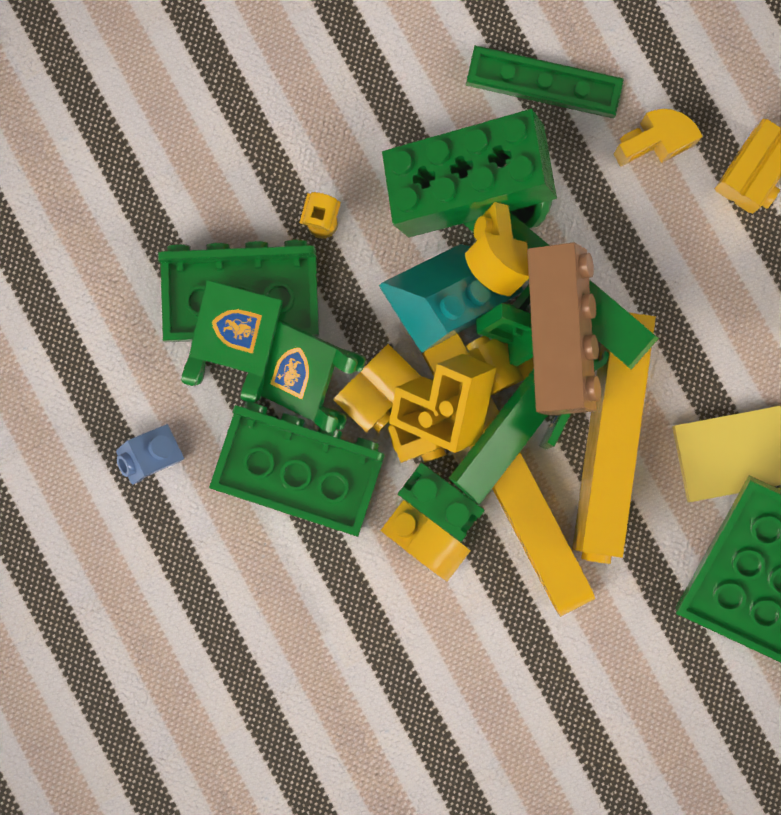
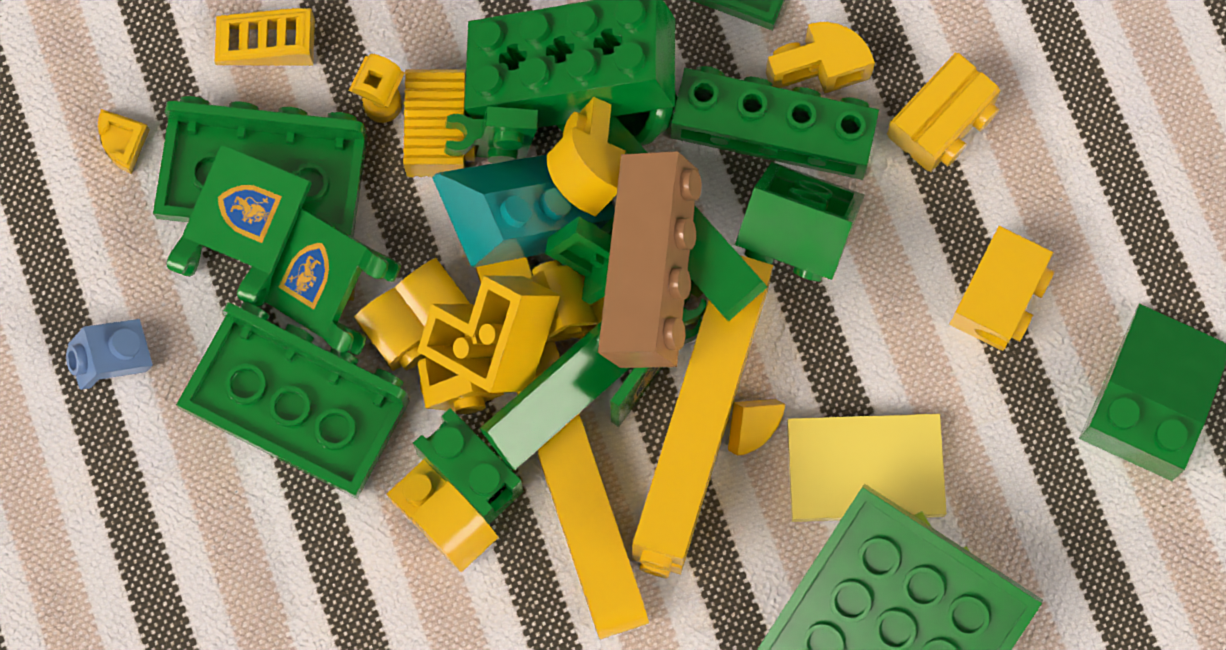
camera: 10 degrees right, 10 degrees down
(126, 282) = (121, 138): none -> yellow tile
(233, 169) = (280, 55): none -> yellow slope
(369, 234) = (428, 101): none -> yellow brick
(420, 239) = (499, 136): none -> green plate
(631, 194) = (774, 122): none -> green brick
(652, 433) = (753, 424): none -> yellow tile
(667, 274) = (798, 222): none -> green slope

